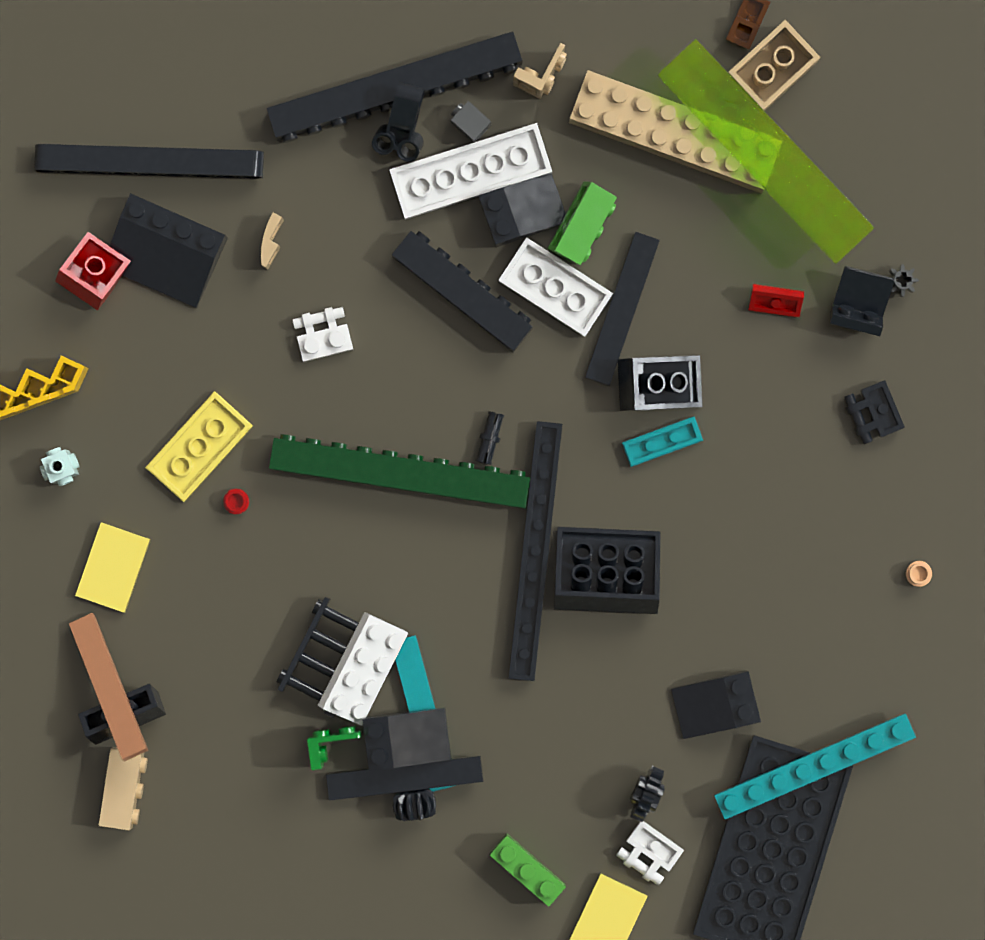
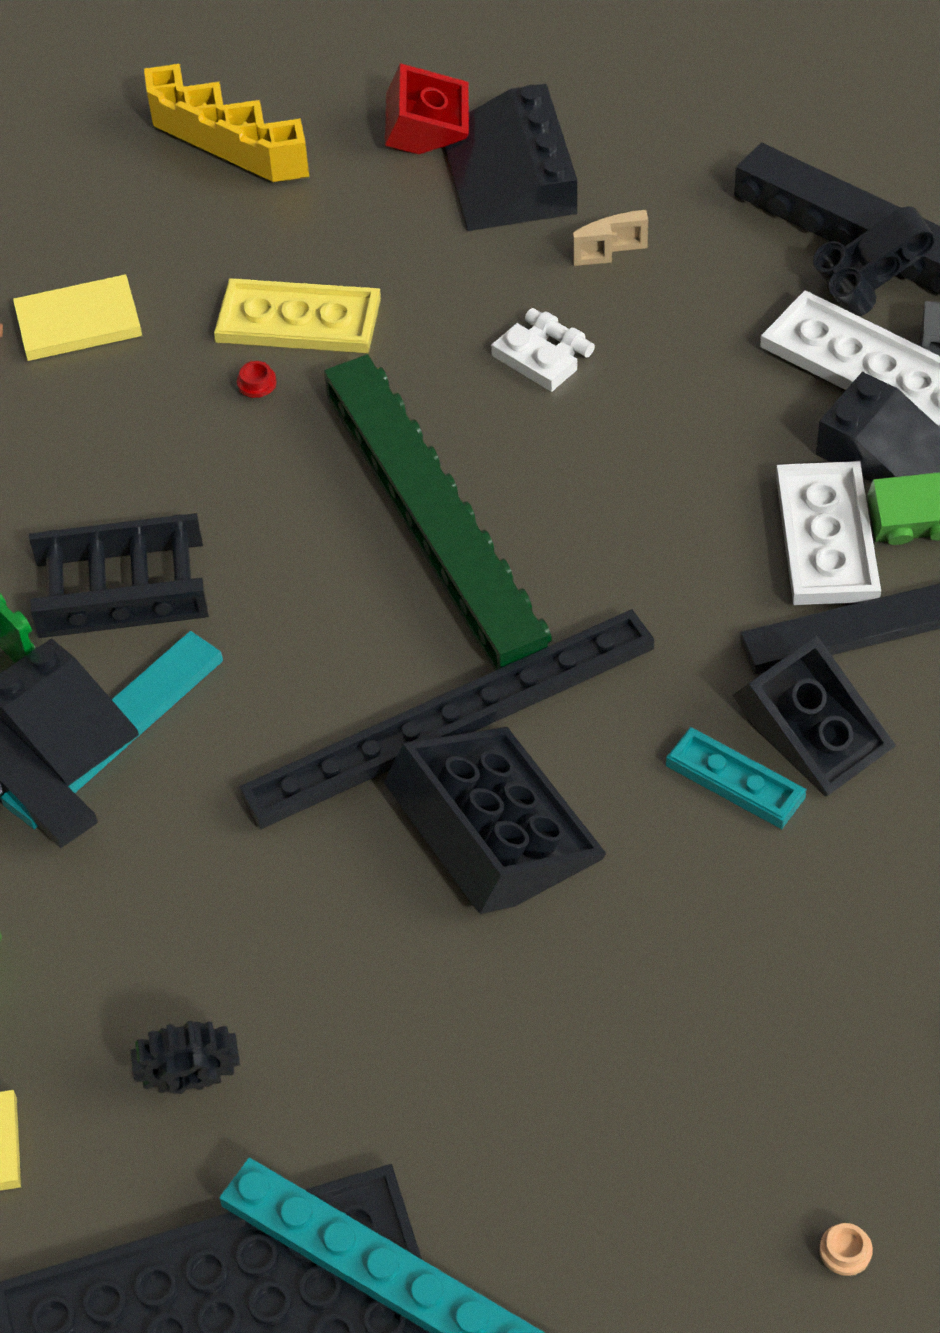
camera: 55 degrees right, 35 degrees down
(69, 466) = (165, 202): light aqua brick -> none
(149, 161) = (603, 101): black beam -> none
(363, 669) = (126, 601): white plate -> none
(462, 291) = (727, 445): black brick -> none
(490, 438) = (565, 579): black pin -> none
(655, 846) = (108, 1142): white plate -> none
(716, 705) = (406, 1087): black slope -> none

